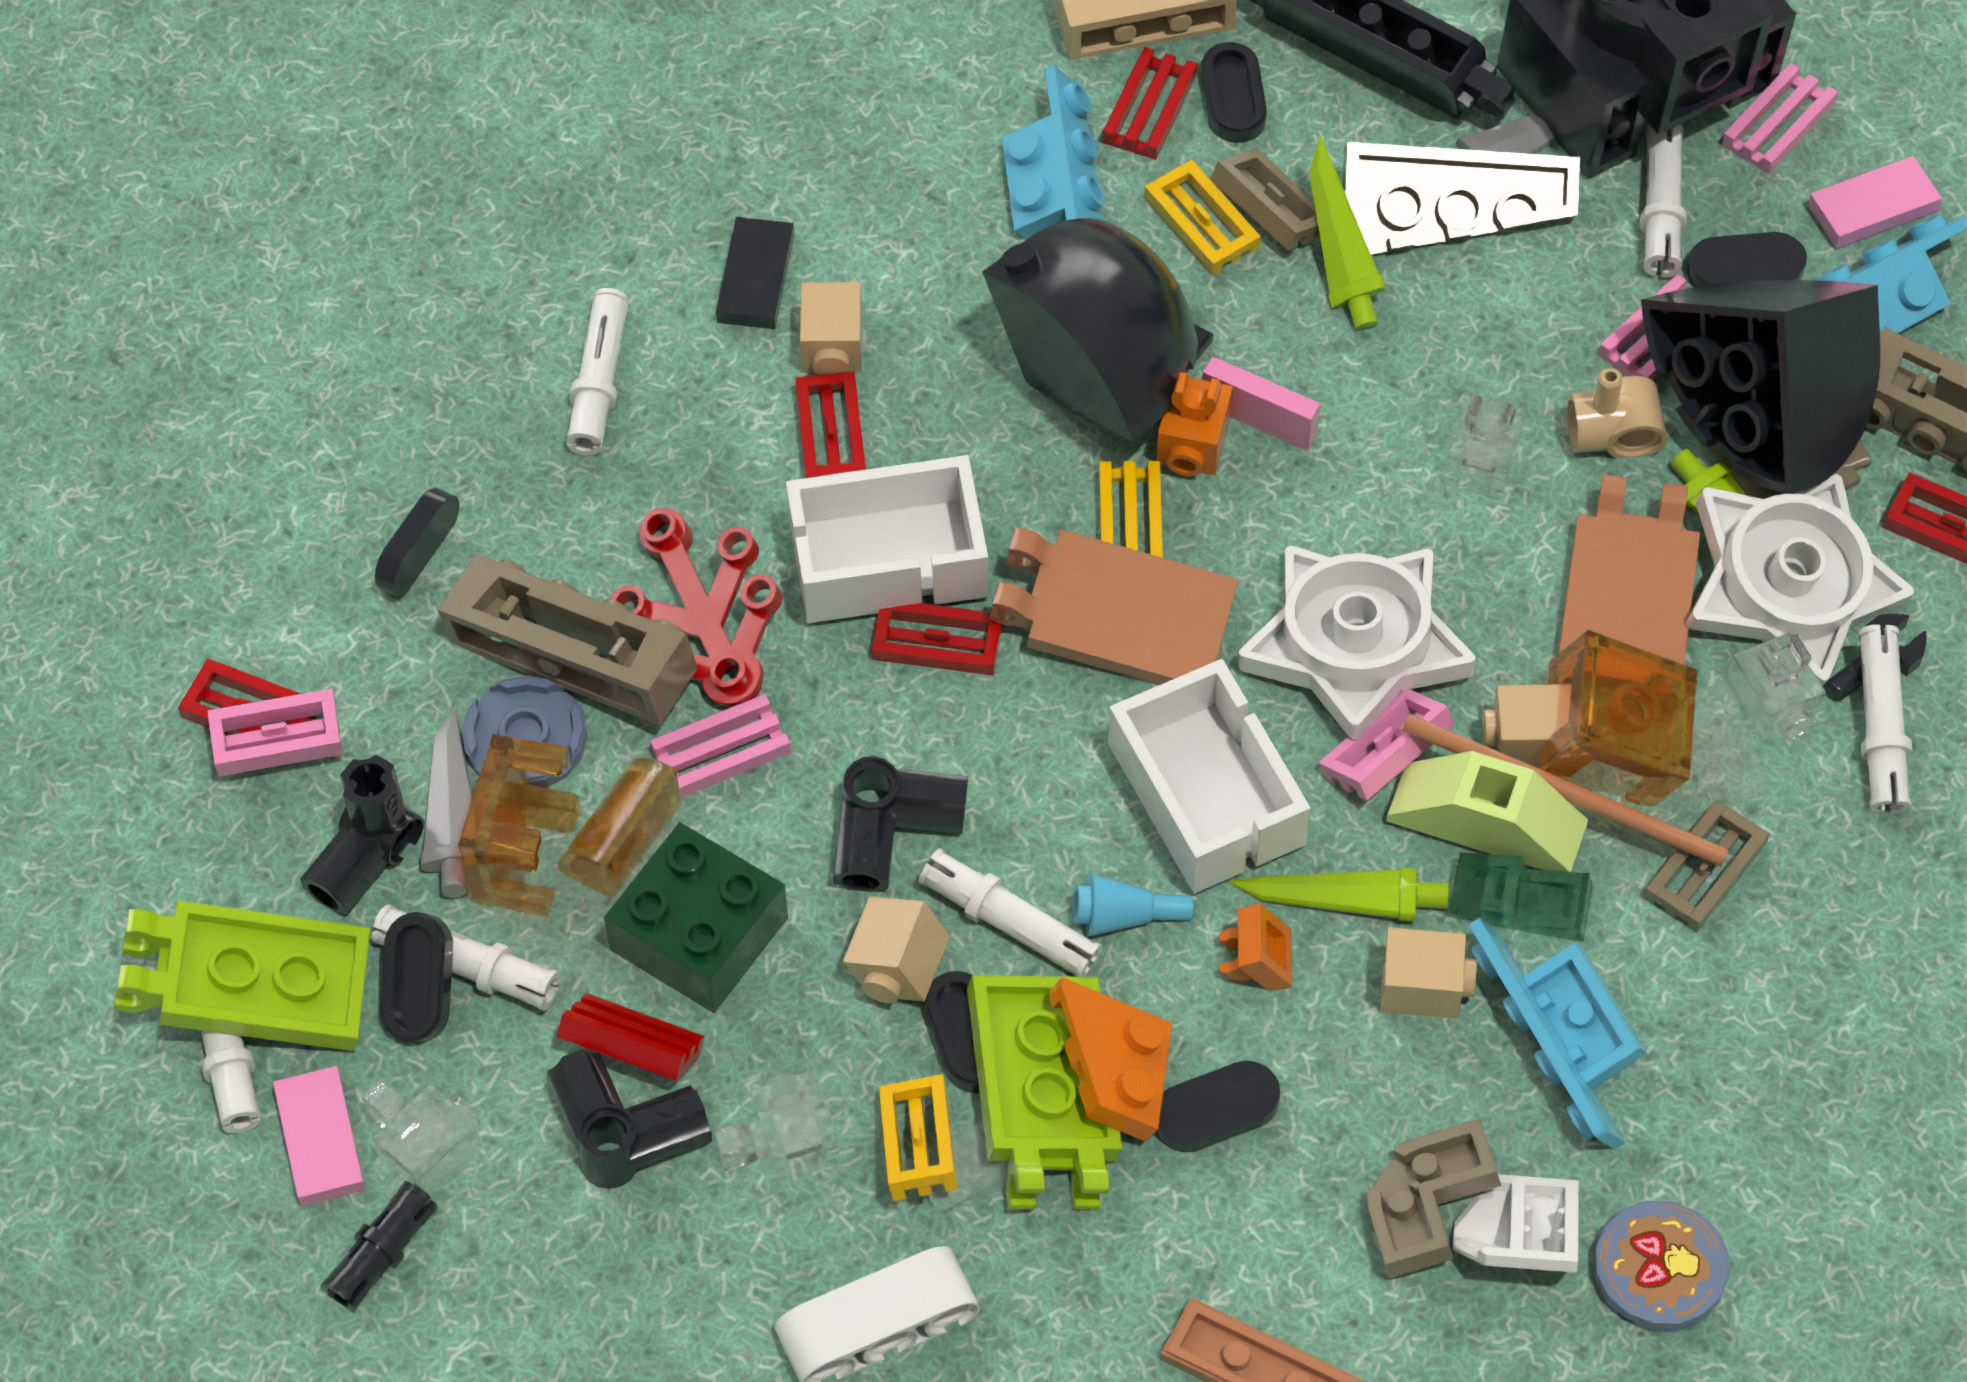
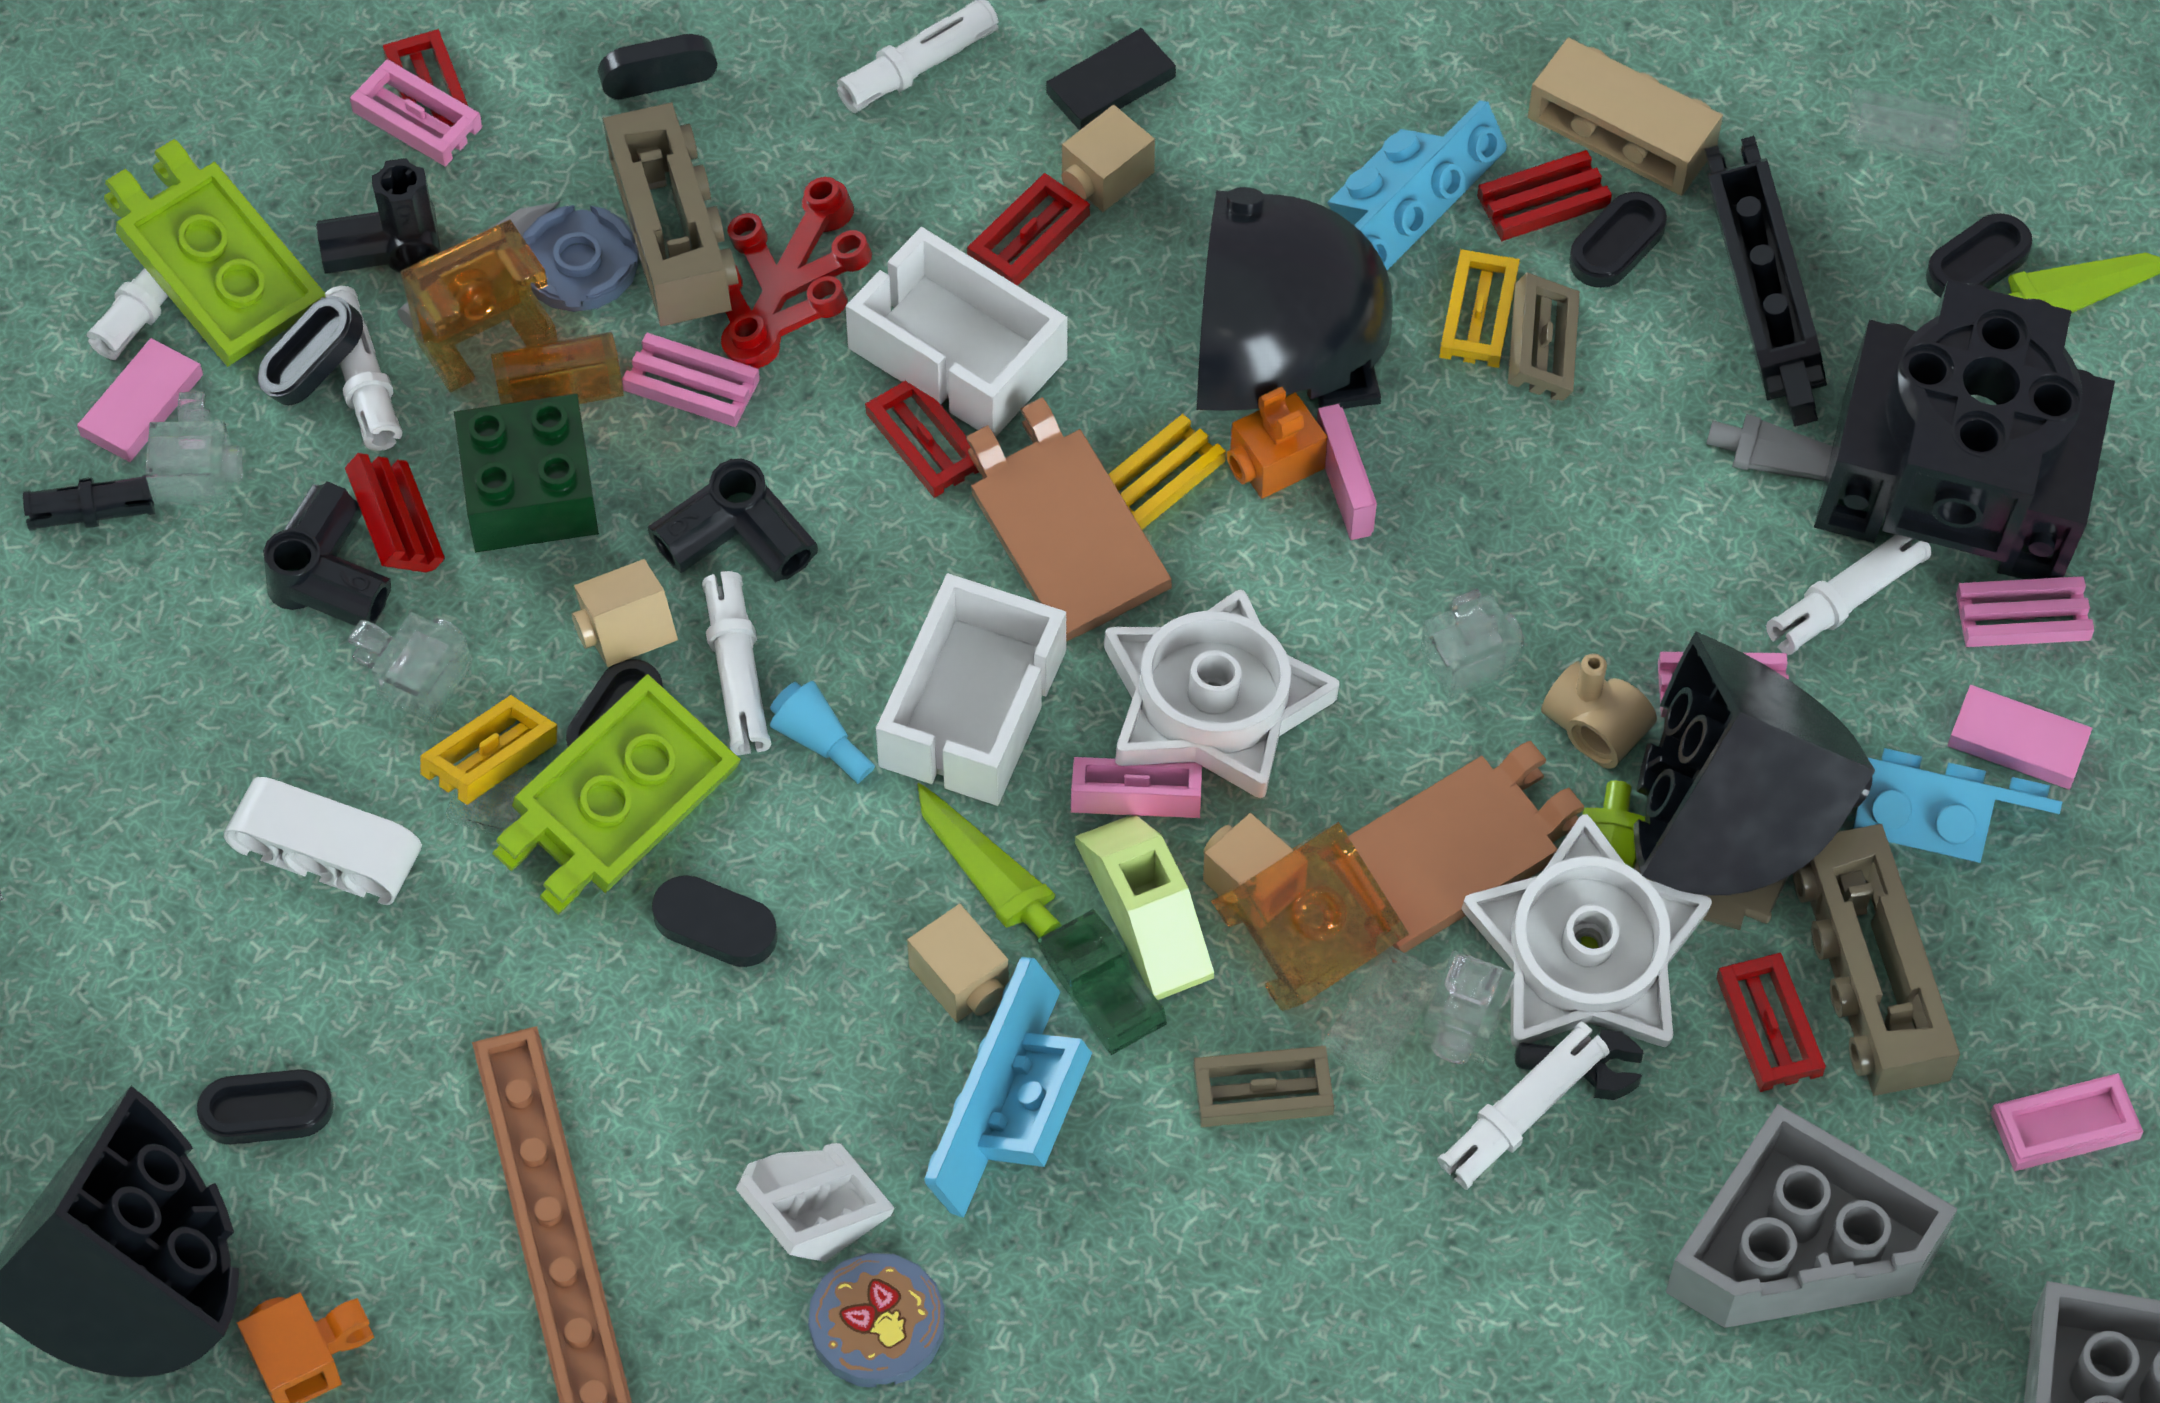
camera: 45 degrees right, 0 degrees up
(1117, 1057) = (677, 819): orange wing -> none
(1262, 949) = (871, 843): orange tile -> none
(1347, 259) = (1540, 427): lime bar -> none
(1410, 1187) = (748, 1110): dark tan plate -> none
(1444, 195) = (1667, 437): wing -> none
(1576, 794) = (1213, 934): nougat axle -> none
(1746, 259) = (1857, 694): black tile -> none

